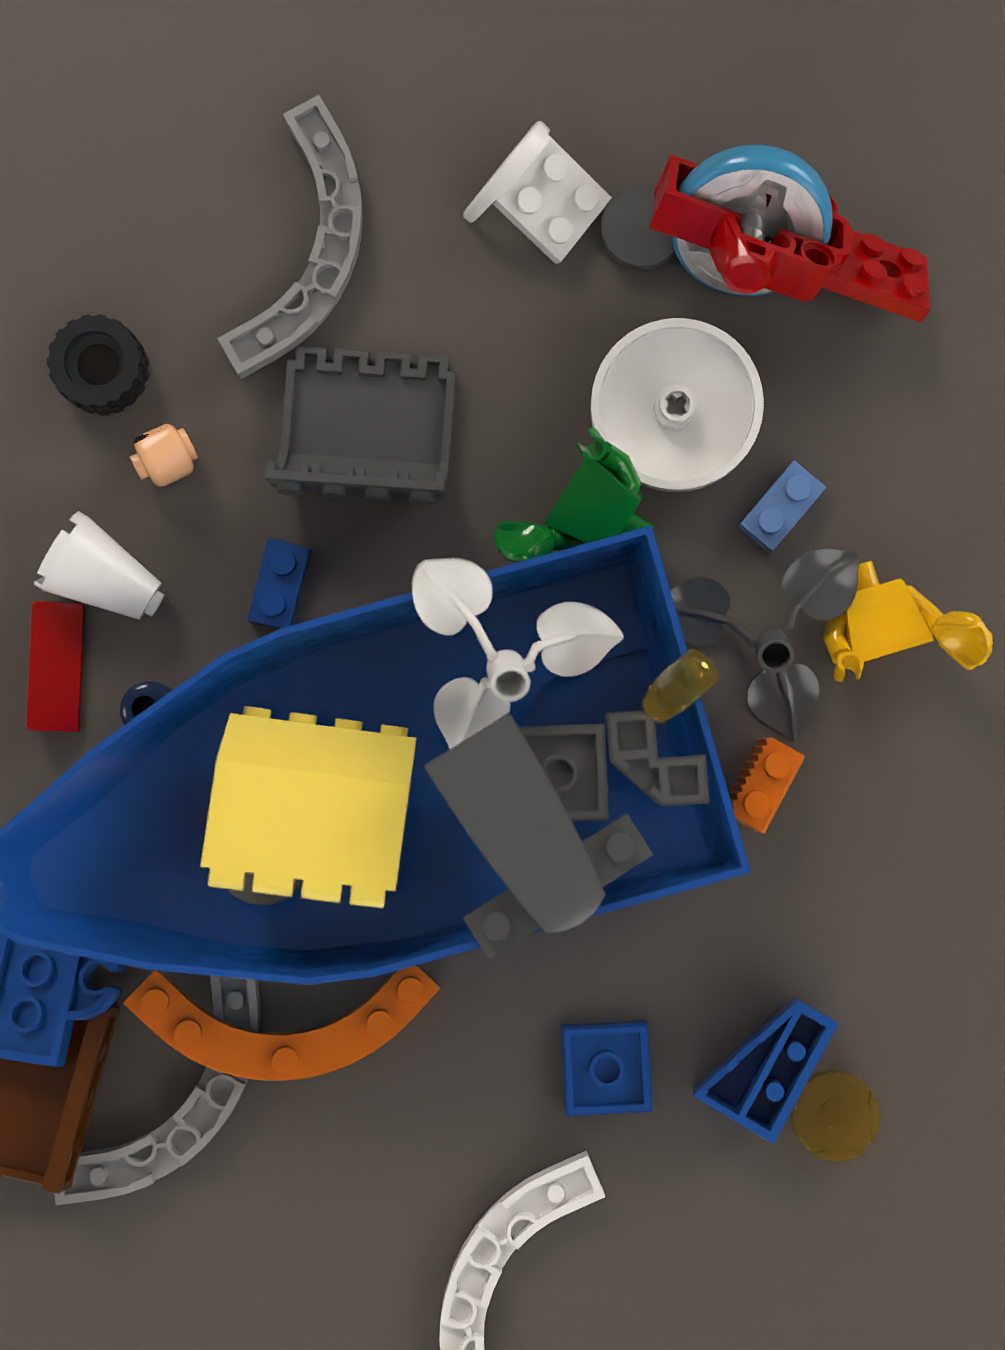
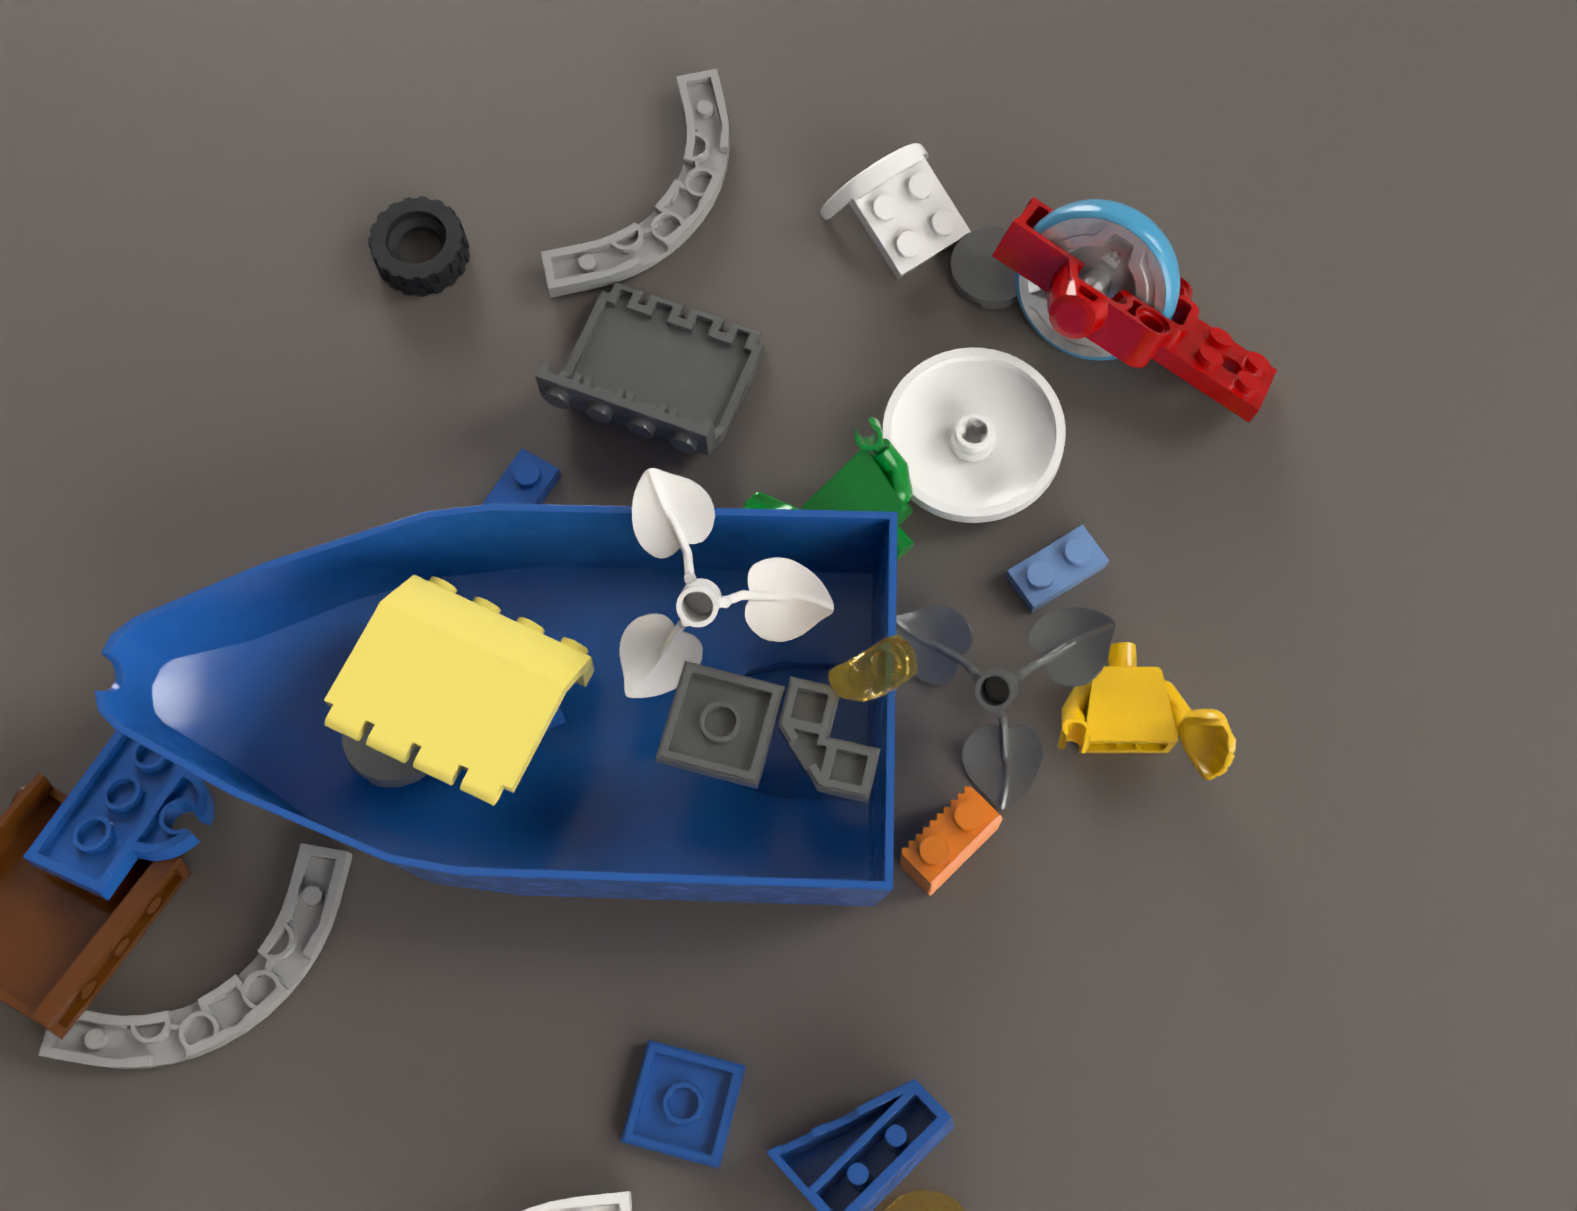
camera: 25 degrees right, 15 degrees down
(55, 666) = (265, 507): red slope -> none
(98, 572) = (341, 427): white cone -> none
(163, 455) = (449, 341): light nougat head -> none
(280, 1054) = (344, 968): orange plate -> none
(528, 838) = (665, 772): dark grey slope -> none

